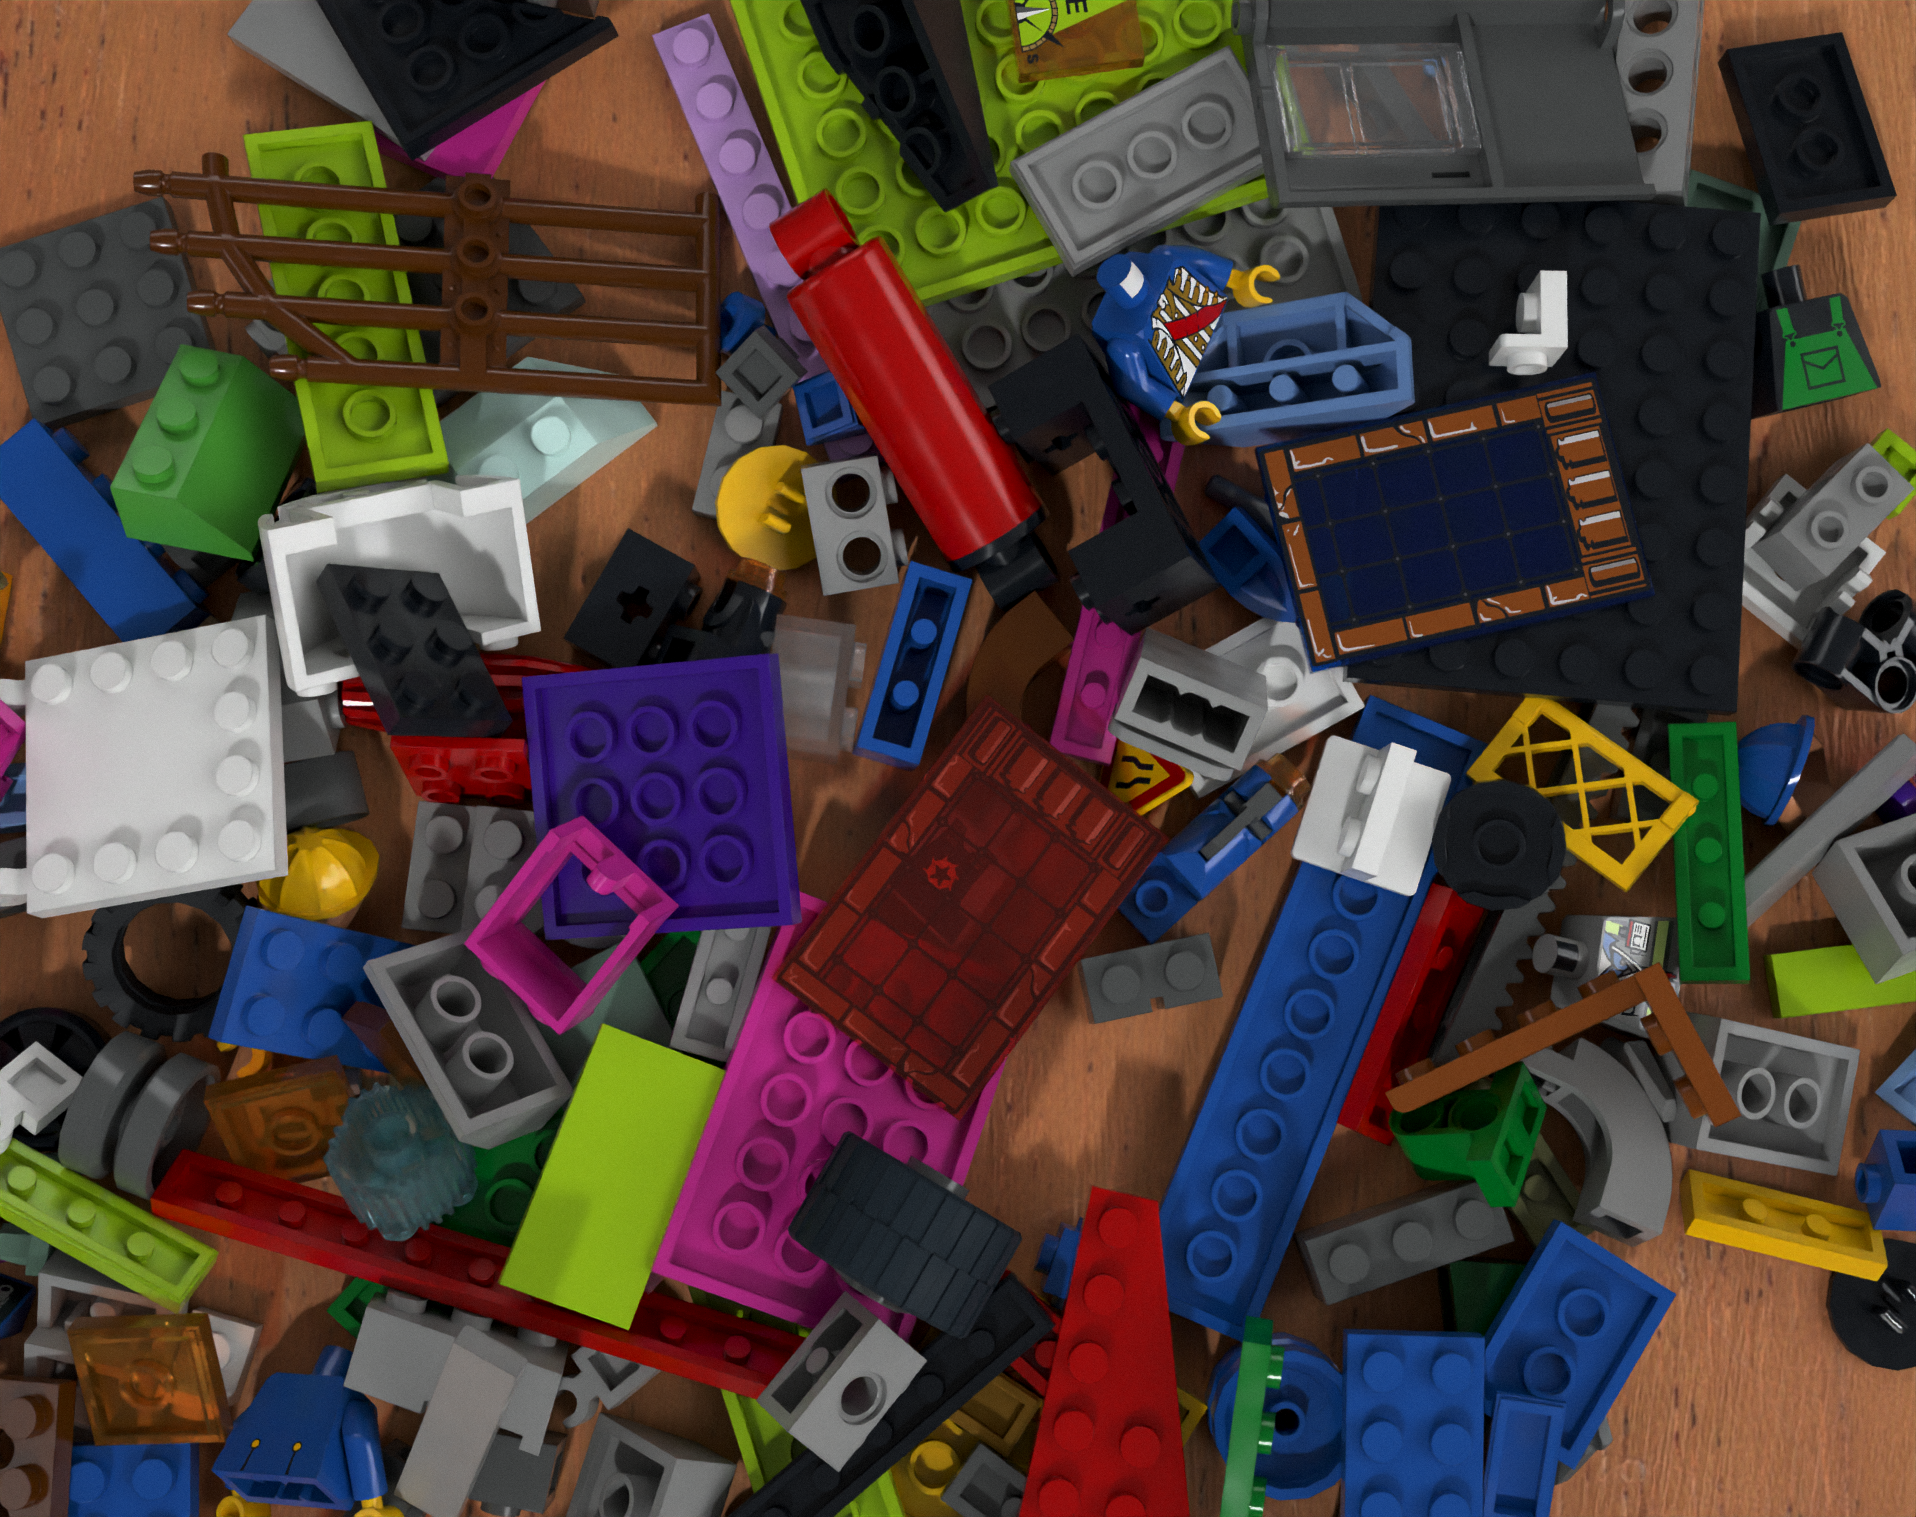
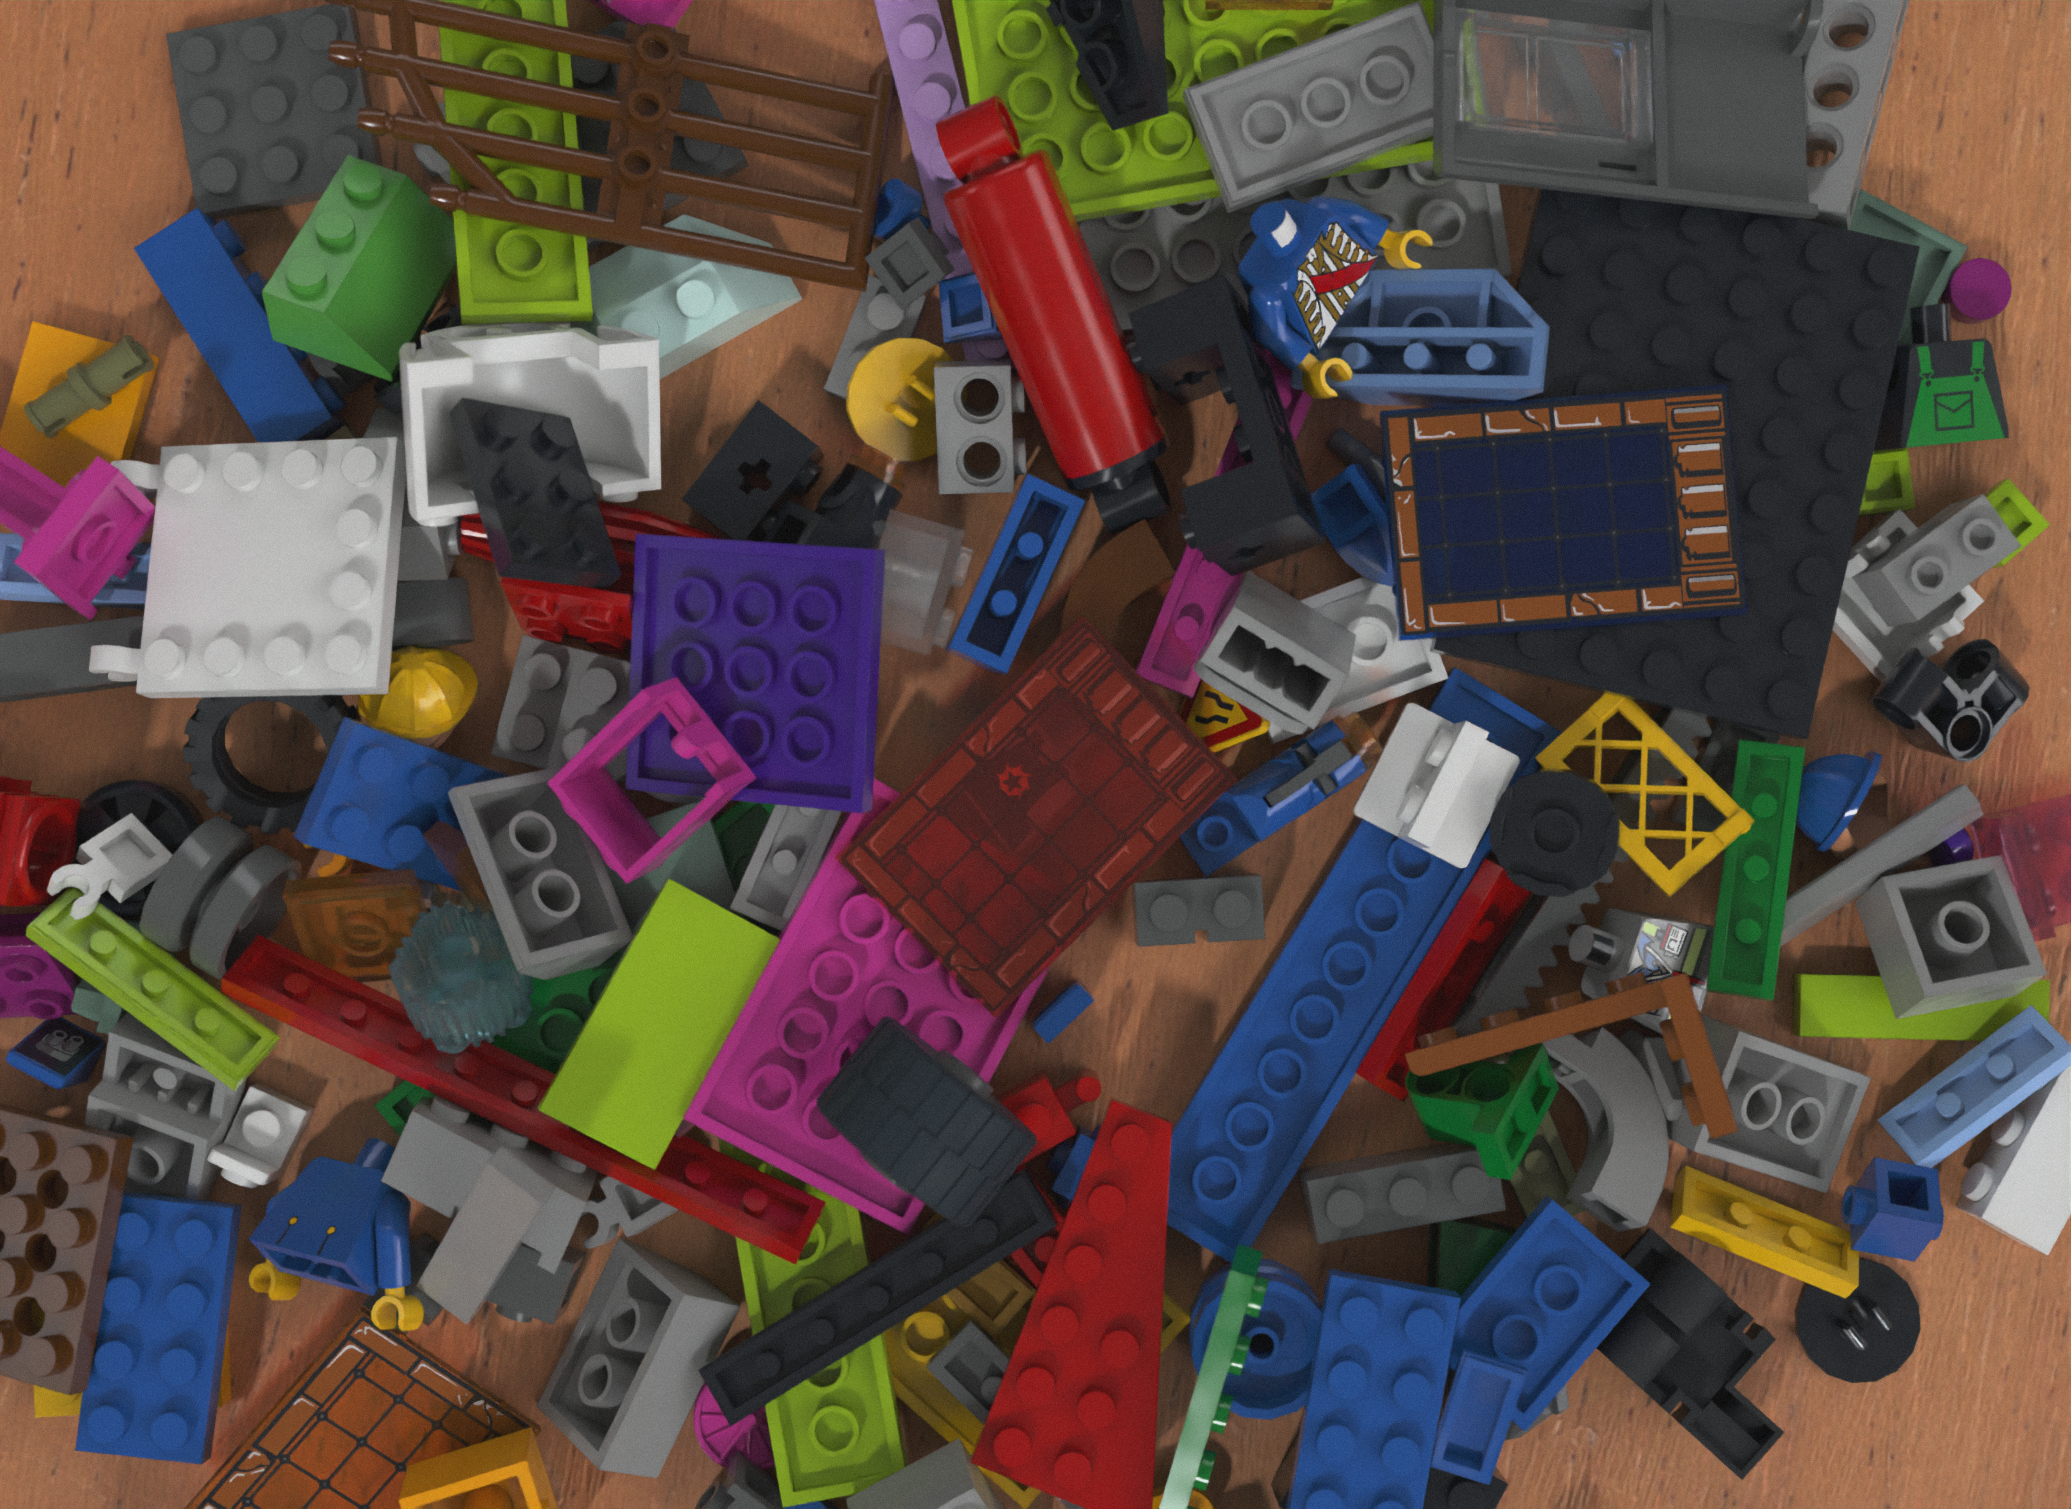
camera: 10 degrees right, 5 degrees up
(150, 1379) = (202, 1146): clear orange tile -> none
(841, 1381) = (847, 1247): light grey brick -> none
(1026, 1104) = (1062, 1011): none -> blue tile
(1026, 1205) = (1048, 1108): none -> red brick
(1543, 318) = (1684, 324): white bracket -> none
(1726, 1357) = (1690, 1347): none -> black plate
(1770, 451) = (1888, 483): none -> lime tile
(1806, 128) = (1983, 164): black plate -> none
(1823, 251) = (1977, 291): none -> magenta tile

